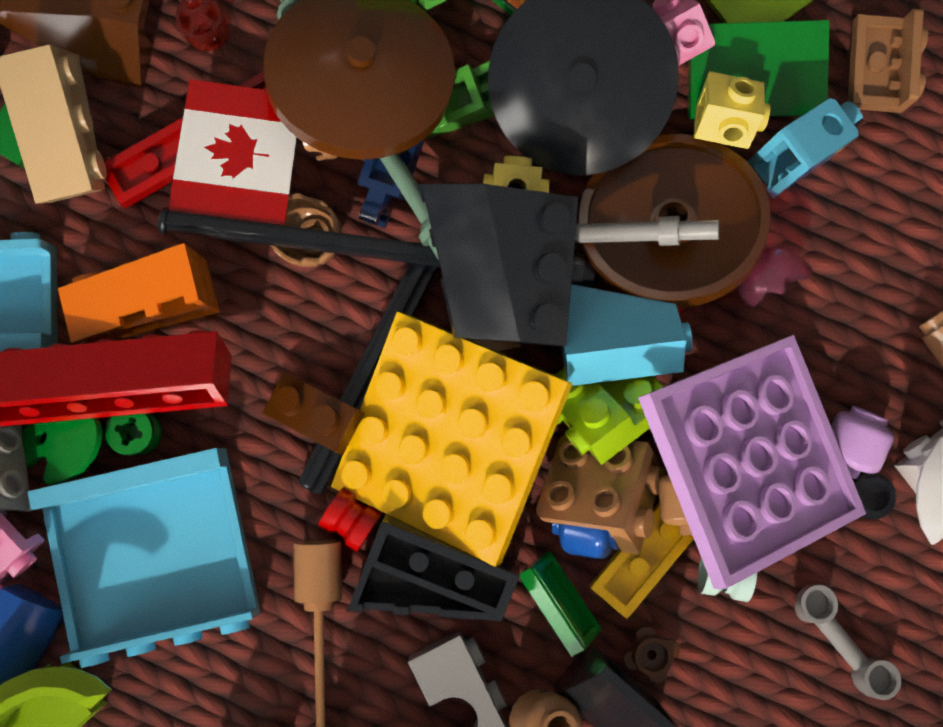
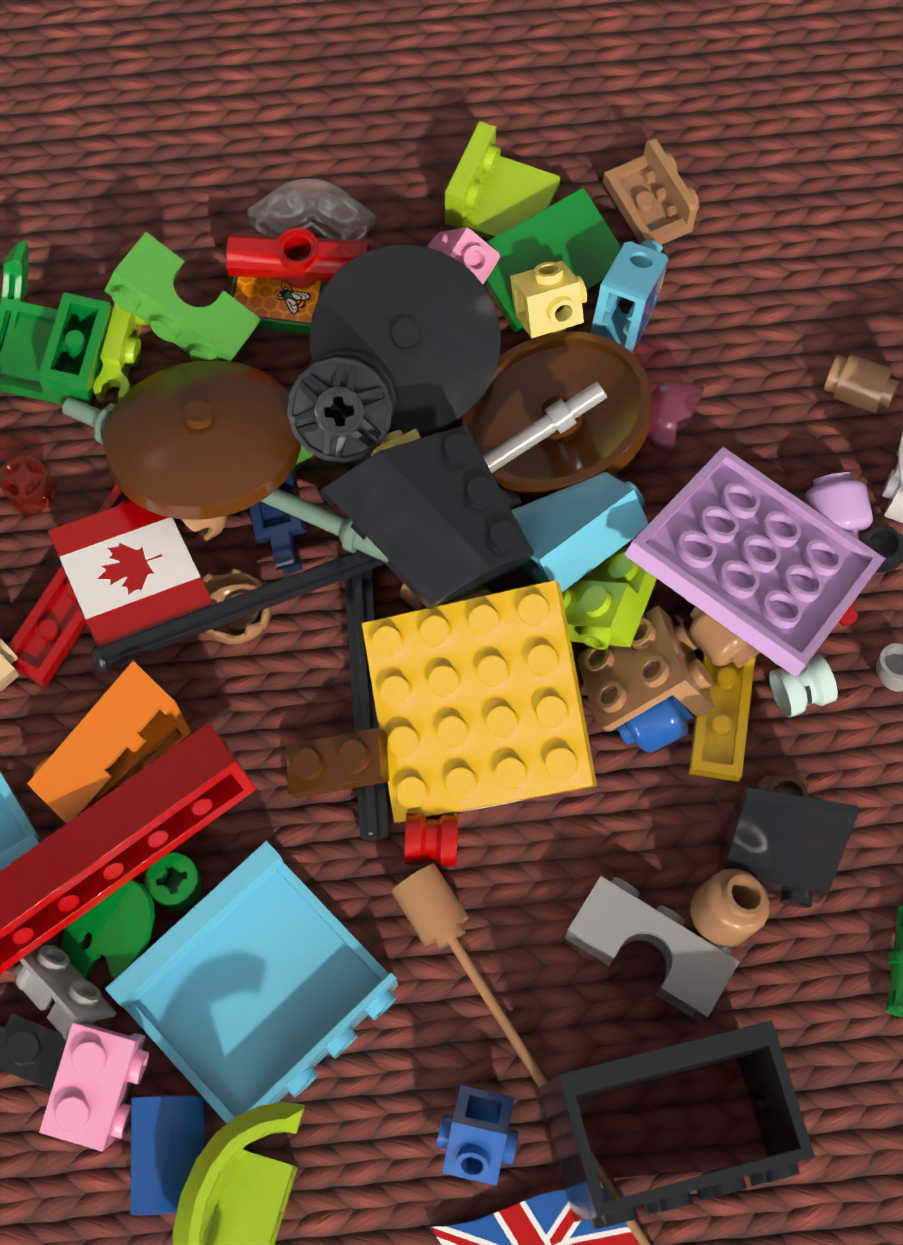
camera: 30 degrees left, 15 degrees down
(425, 575) = (537, 836): black wedge -> none
(512, 108) = (362, 384): none -> black wheel
(560, 603) = (673, 798): green tile -> none

